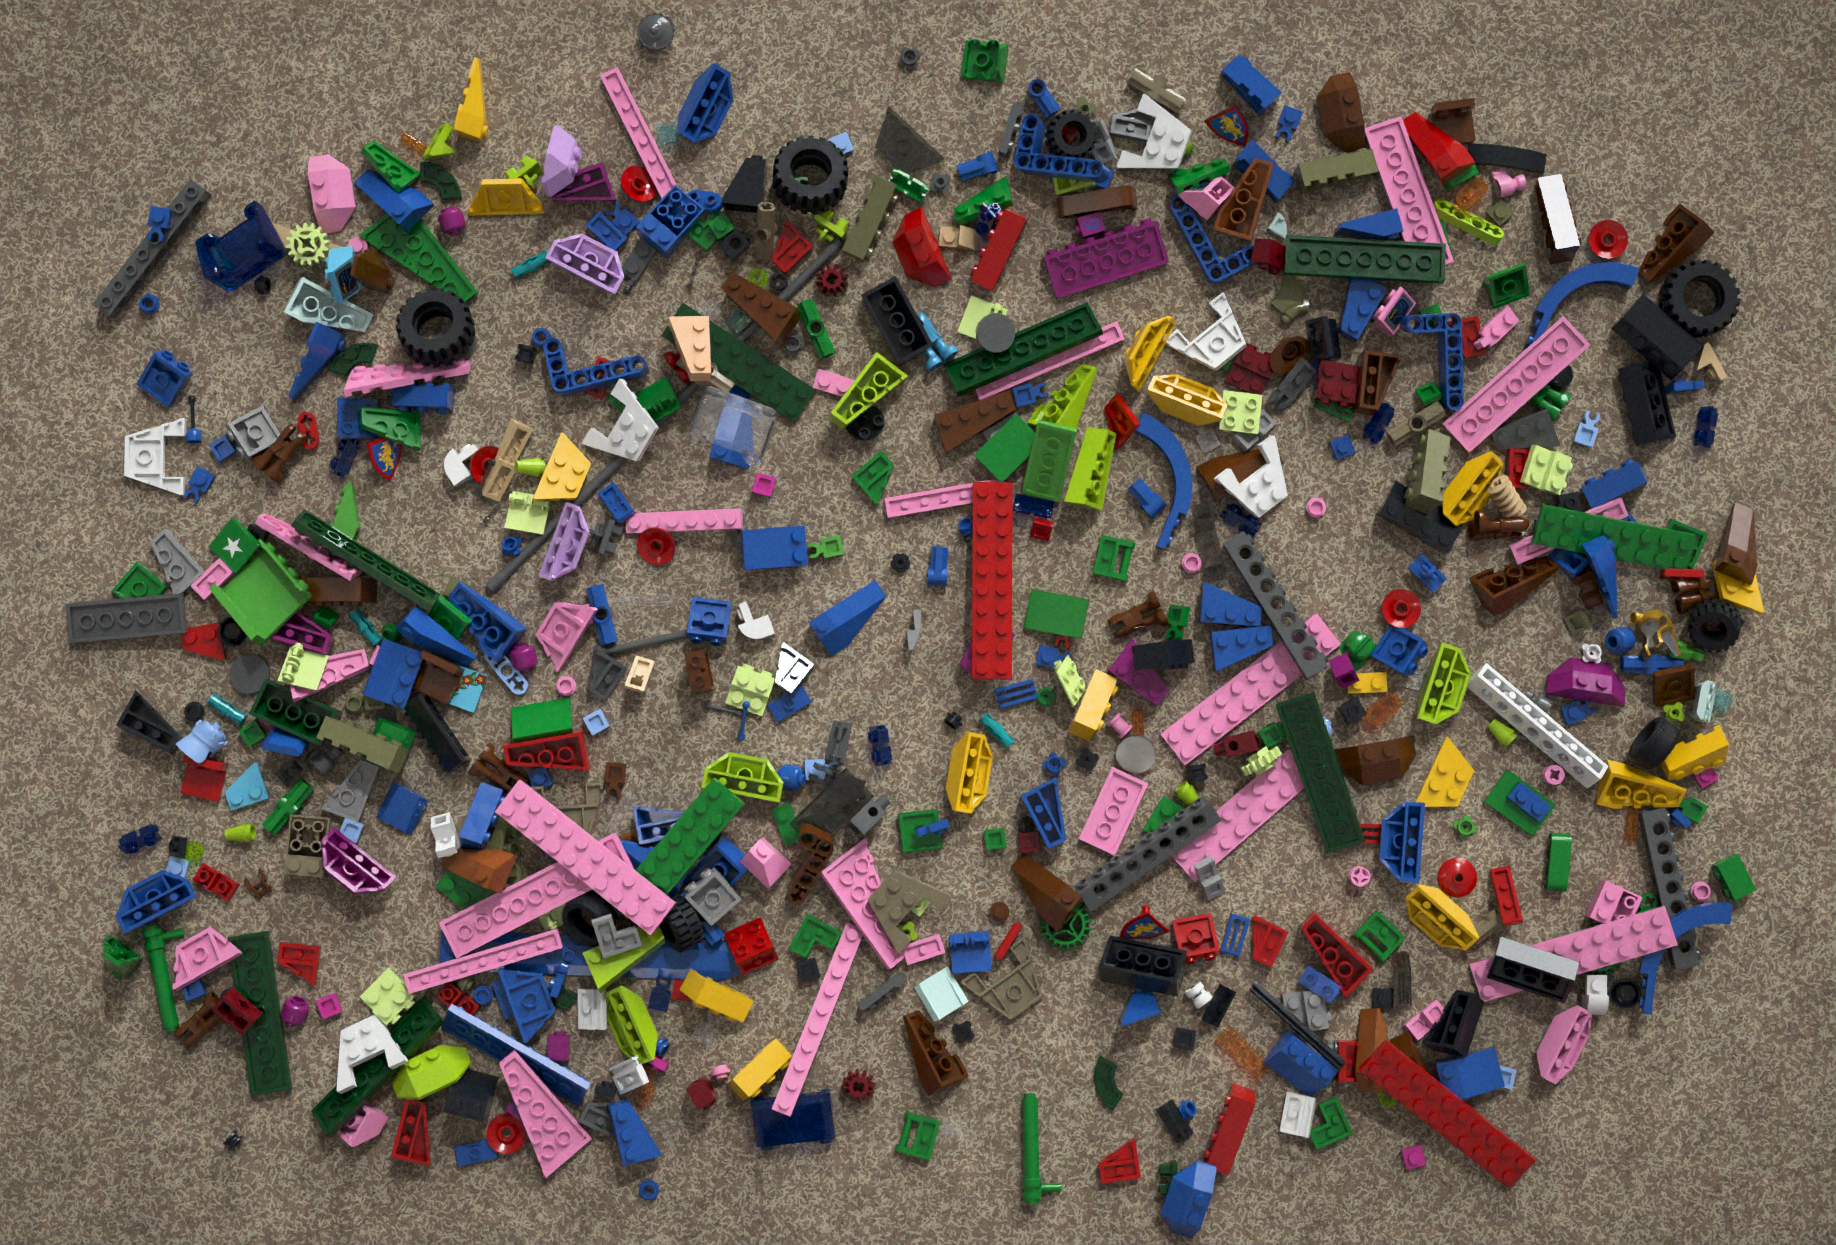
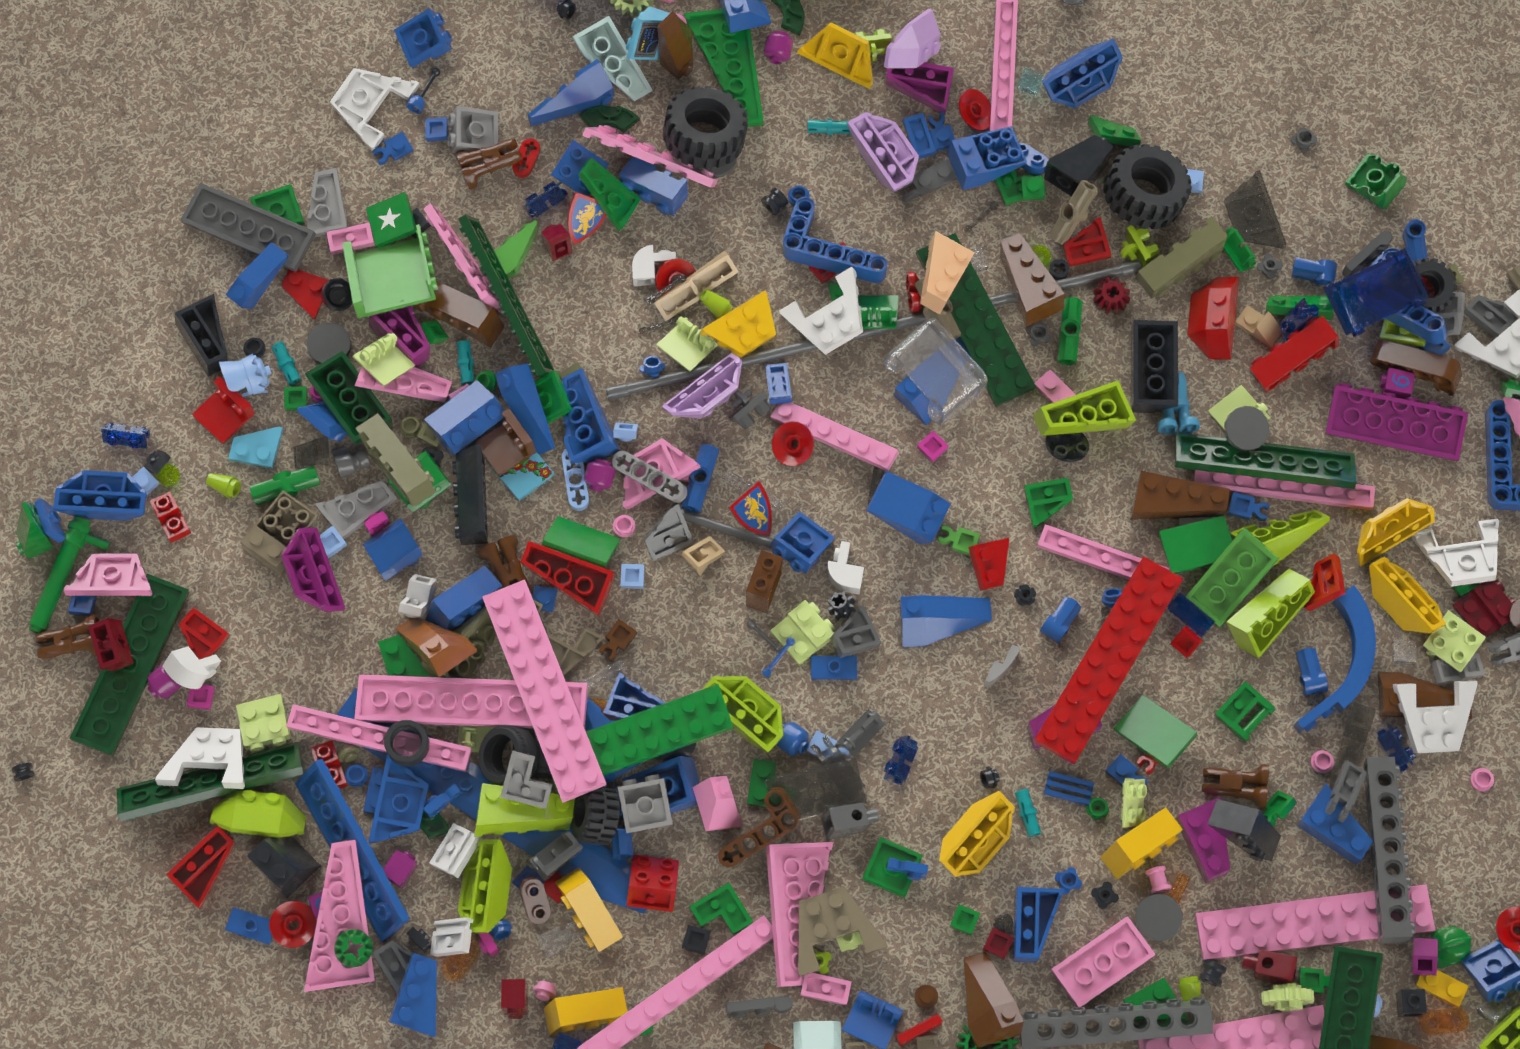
camera: 30 degrees right, 15 degrees down
(127, 942) = (50, 520): none -> blue plate
(160, 656) = (257, 277): none -> blue slope
(263, 881) = (202, 551): reddish brown piece -> none
(308, 995) = (188, 670): none -> white brick
(363, 1125) = (158, 829): bright pink slope -> none
(375, 488) = (557, 241): none -> dark red slope
(376, 795) = (376, 522): none -> dark pink plate
(492, 955) = (406, 760): none -> black tyre
(522, 610) = (625, 431): none -> light blue plate
(561, 1118) = (357, 937): none -> green gear
(563, 642) = (649, 476): none -> light grey beam
(657, 618) = (753, 510): none -> shield
(668, 971) = (555, 855): none -> dark grey hinge
(674, 1012) = (535, 901): none -> plate
(732, 253) = (1031, 221): black brick -> none
(737, 320) = (997, 283): clear light blue plate -> none
(758, 140) = (1114, 132): none -> green wing
(773, 653) = (841, 605): none -> black gear
(860, 552) = (990, 562): none -> red wing
(1036, 165) = (1377, 292): none -> clear blue windscreen
(1221, 579) = (1346, 789): none -> dark grey hinge
(1238, 644) = (1328, 868): blue wedge -> none

